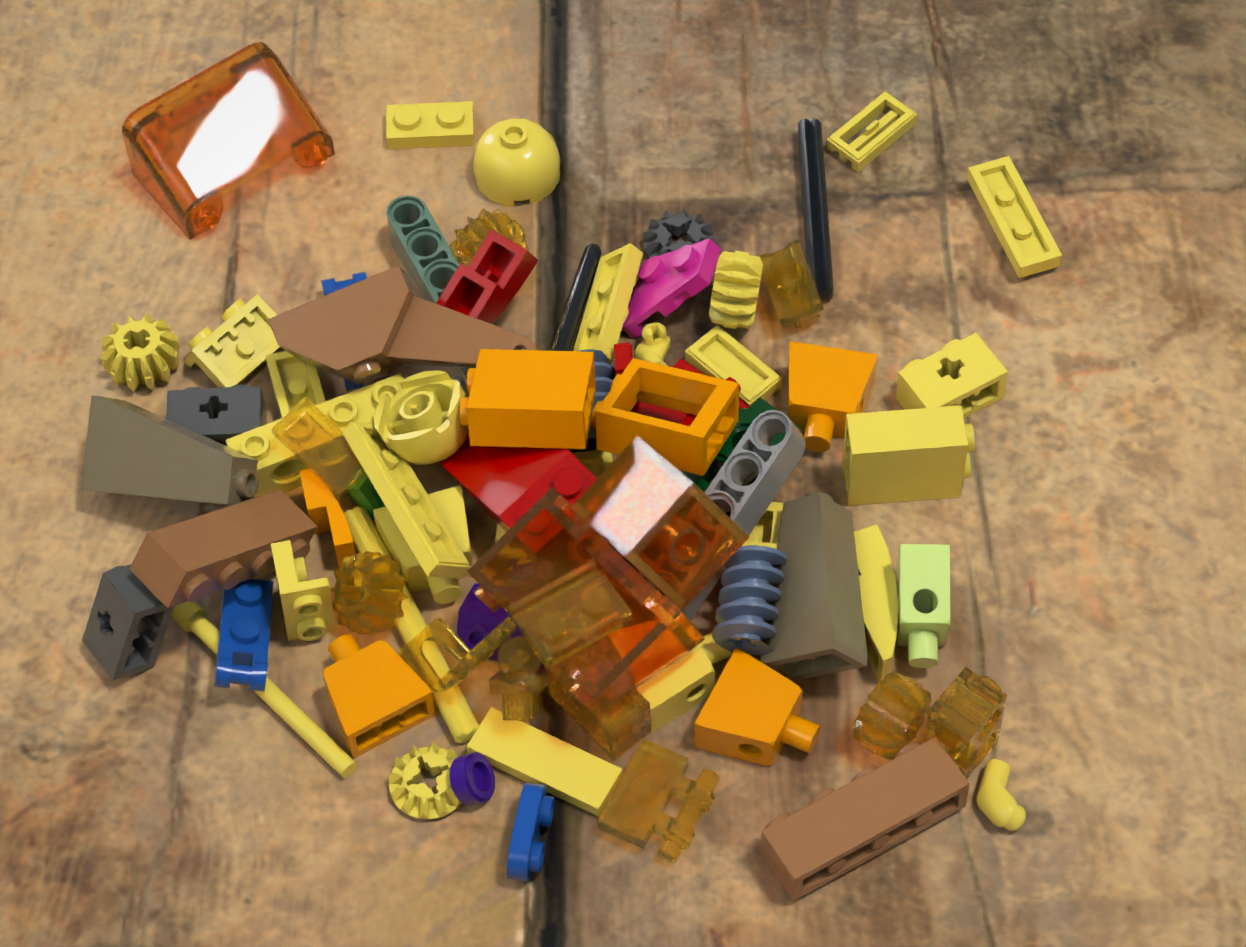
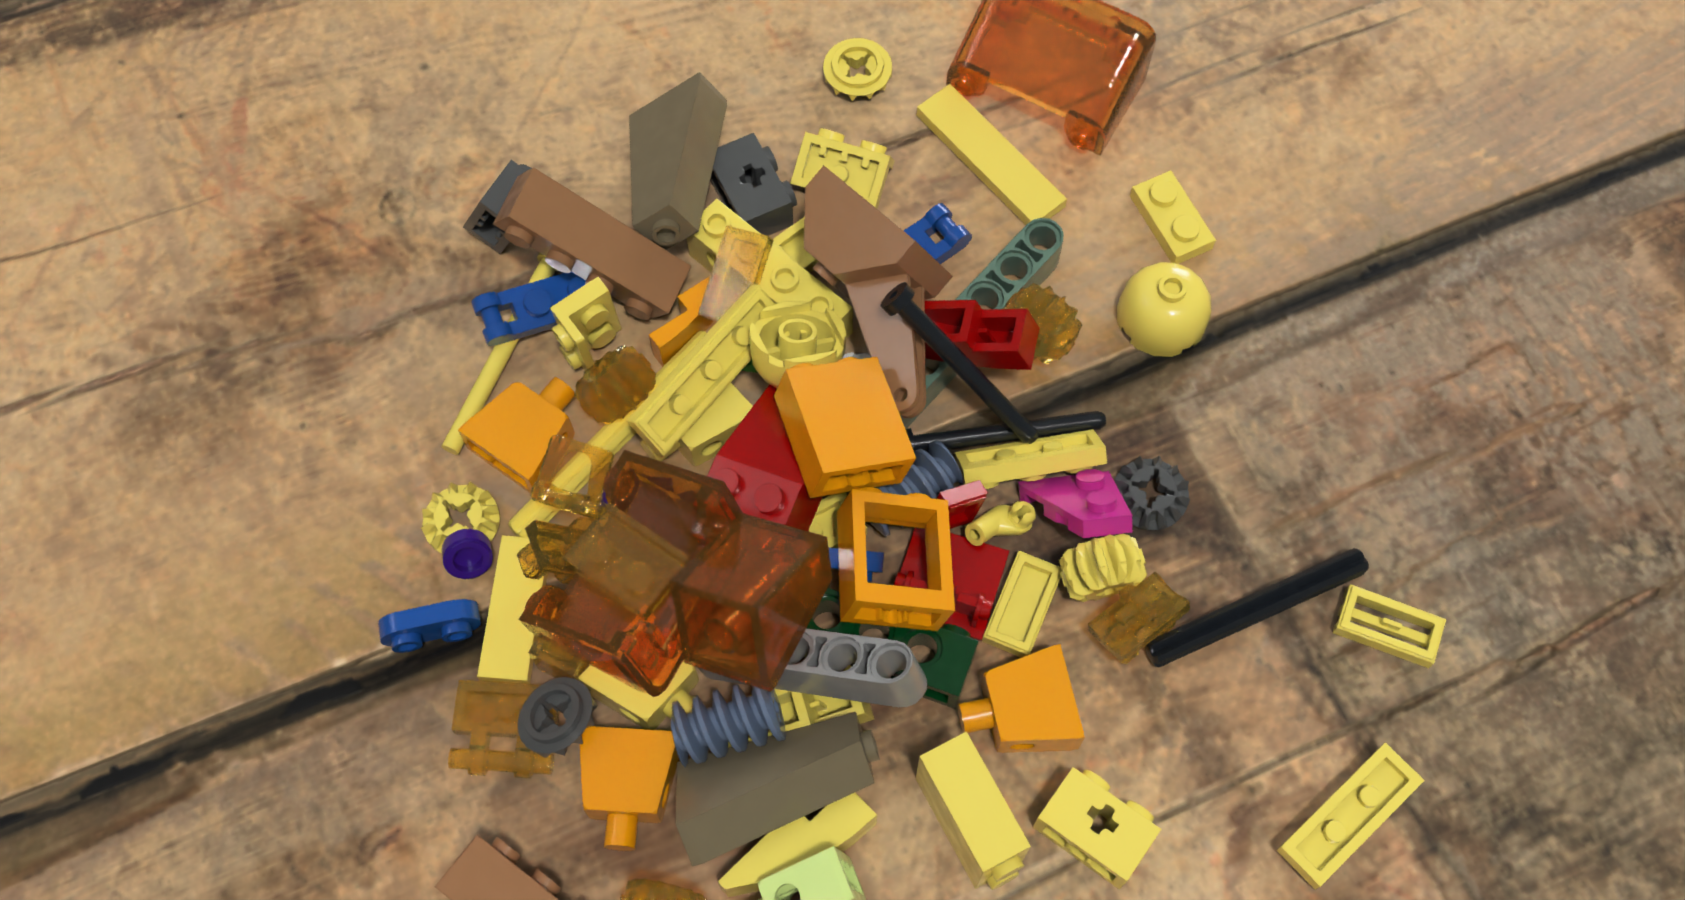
camera: 65 degrees right, 10 degrees up
(140, 352) = (797, 97): light yellow gear -> none
(143, 282) = (857, 53): none -> light yellow gear
(290, 231) = (990, 156): none -> light yellow tile
(443, 304) = (900, 301): none -> black bar
(659, 730) = (536, 724): none -> dark grey gear

